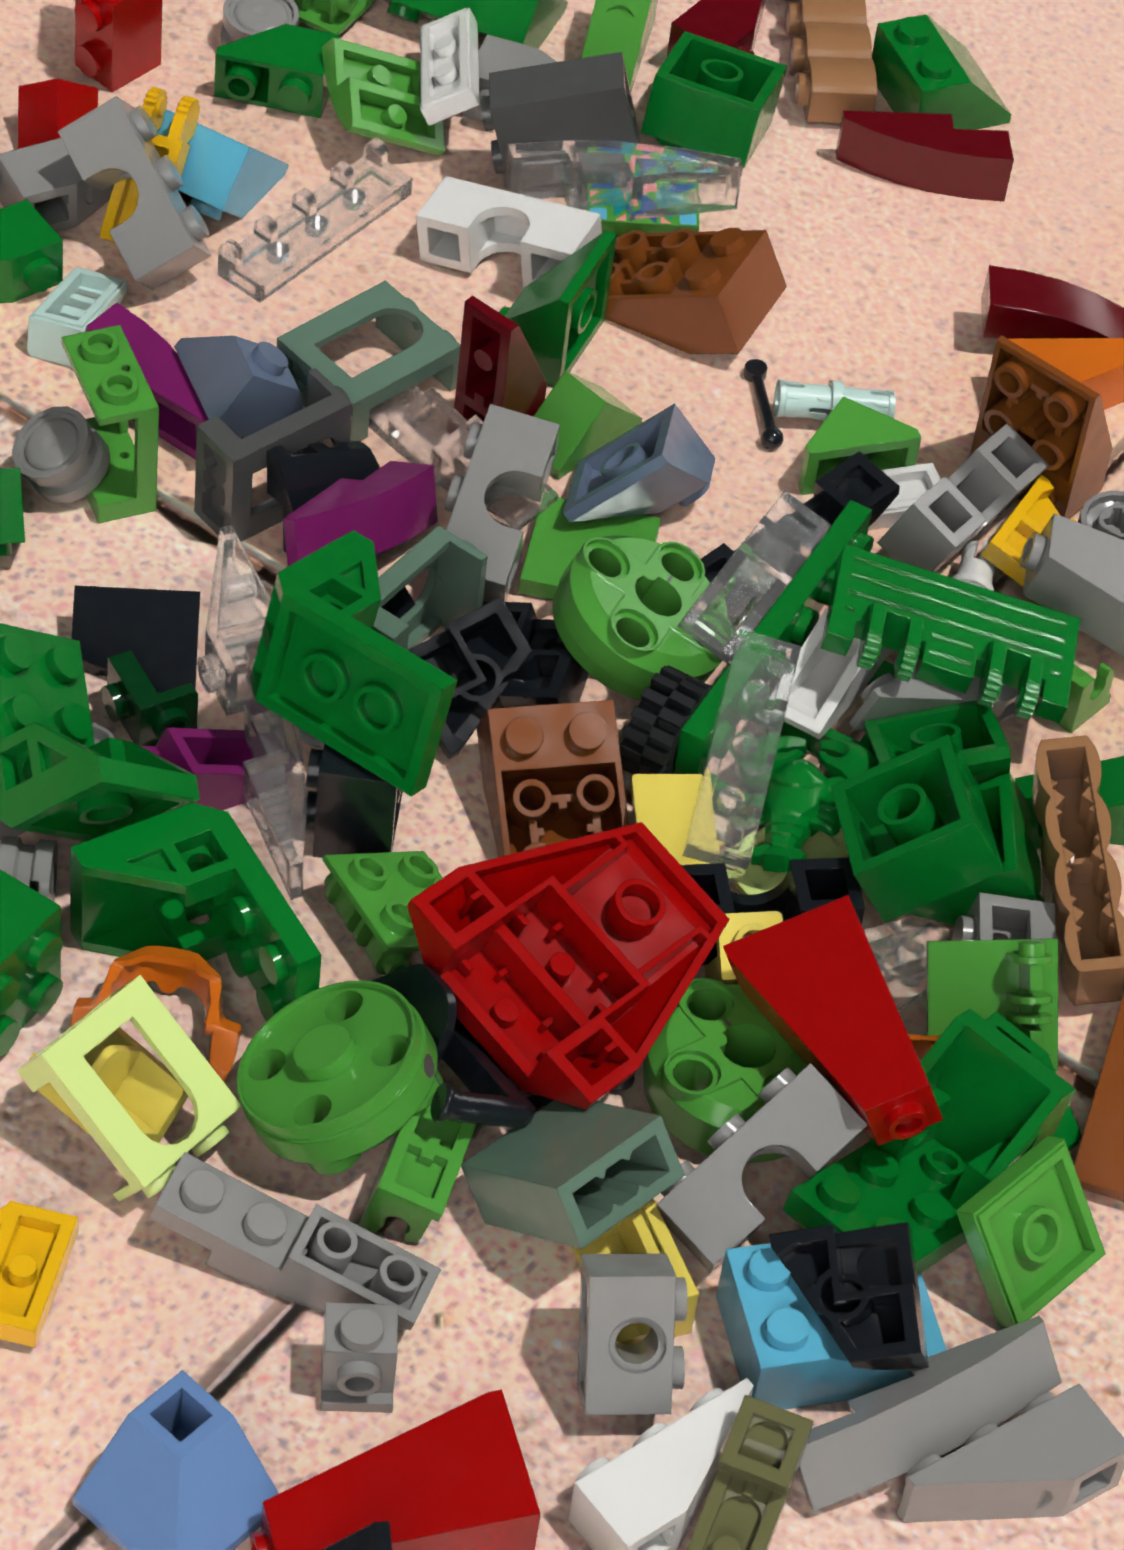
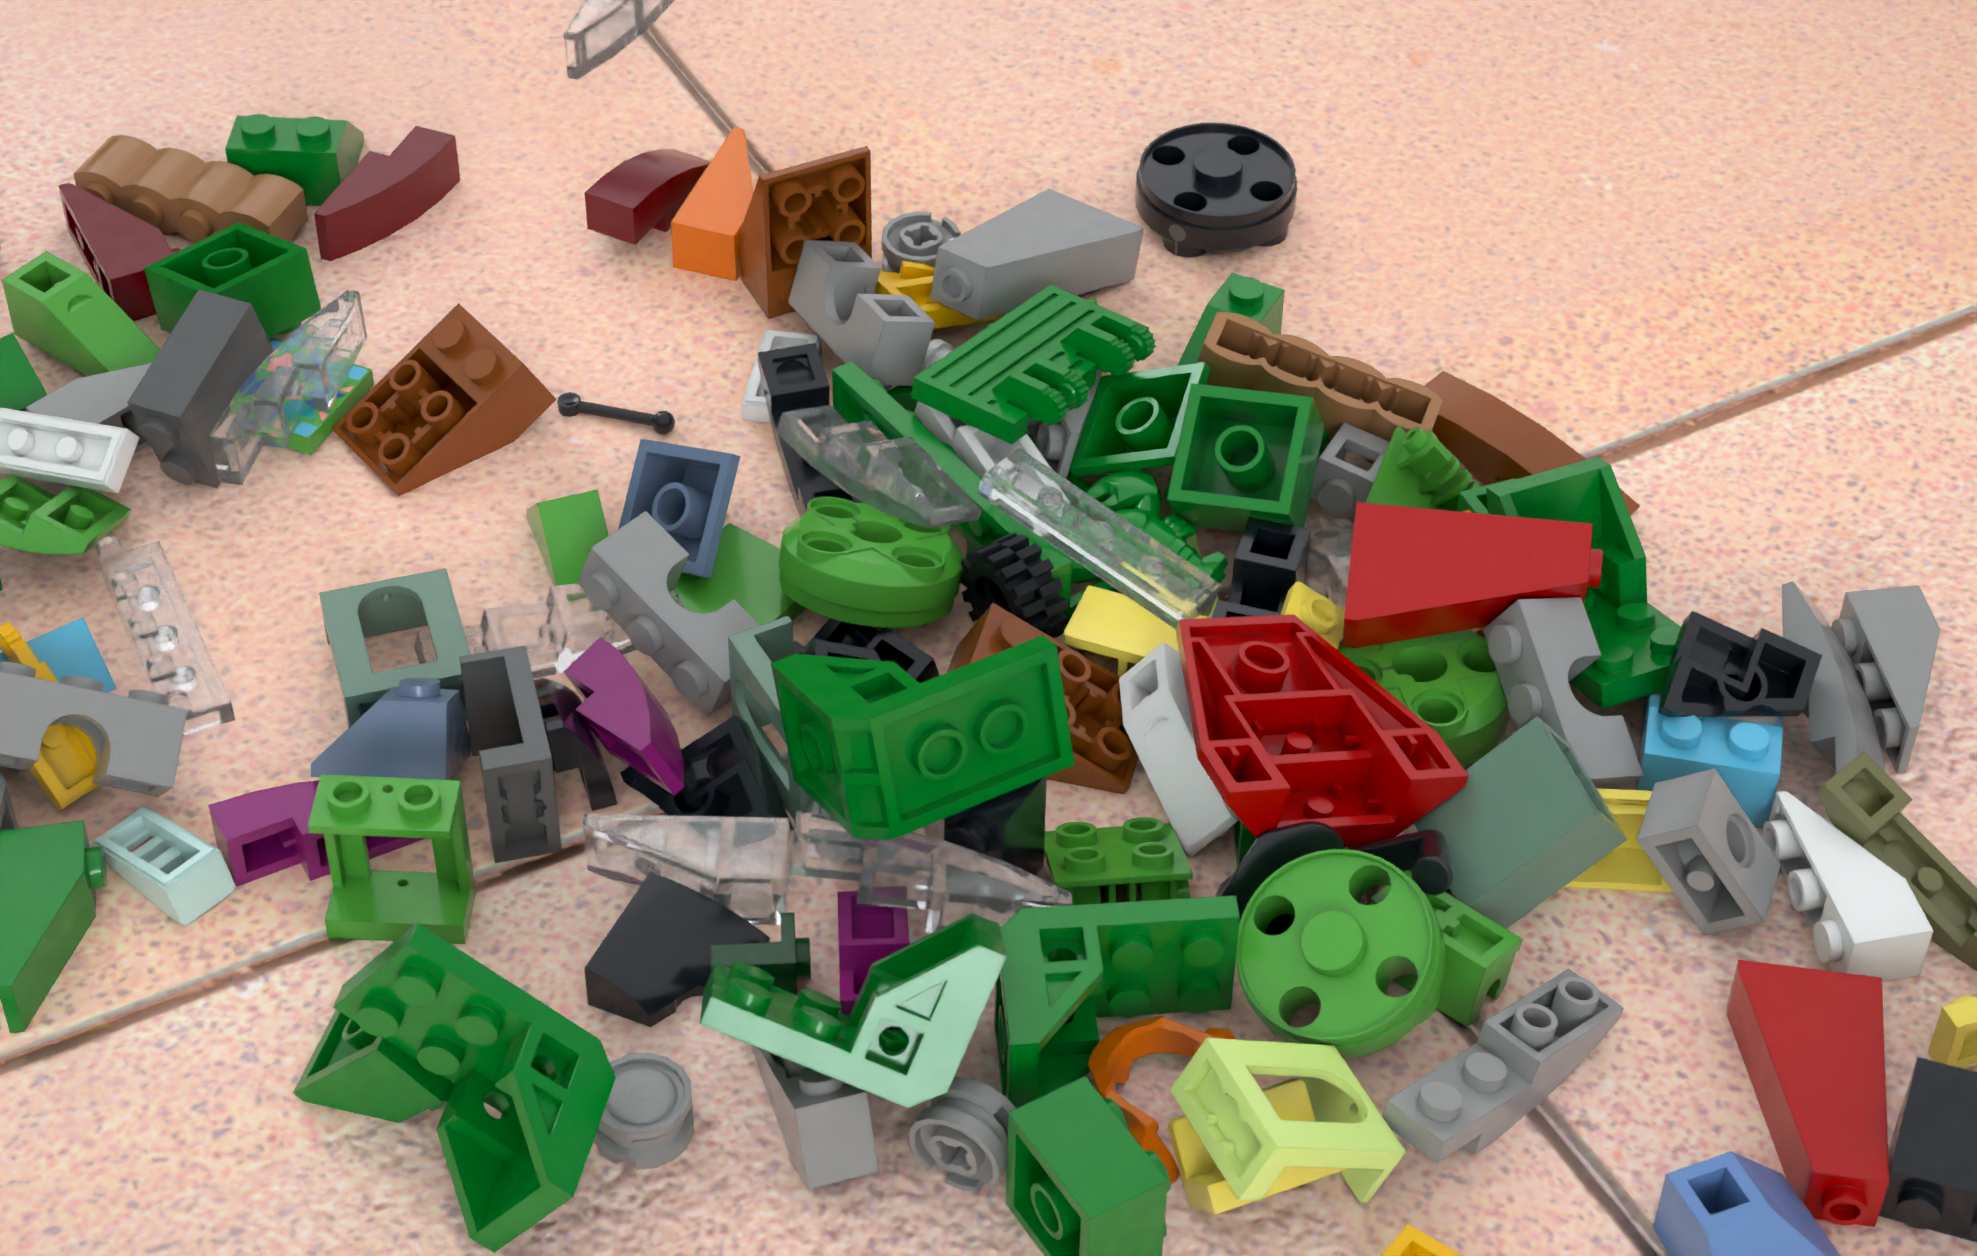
camera: 60 degrees left, 5 degrees down
(61, 454) = (376, 913): light grey wheel -> none
(359, 1357) = (1646, 1062): light grey brick -> none
(471, 221) = (340, 461): white arch -> none
(495, 365) = (519, 541): dark red slope -> none
(566, 306) = (444, 490): green slope -> none
(819, 400) = (655, 363): light aqua pin -> none
(855, 429) = (719, 366): bright green slope -> none
(1031, 1232) = (1679, 563): bright green tile -> none

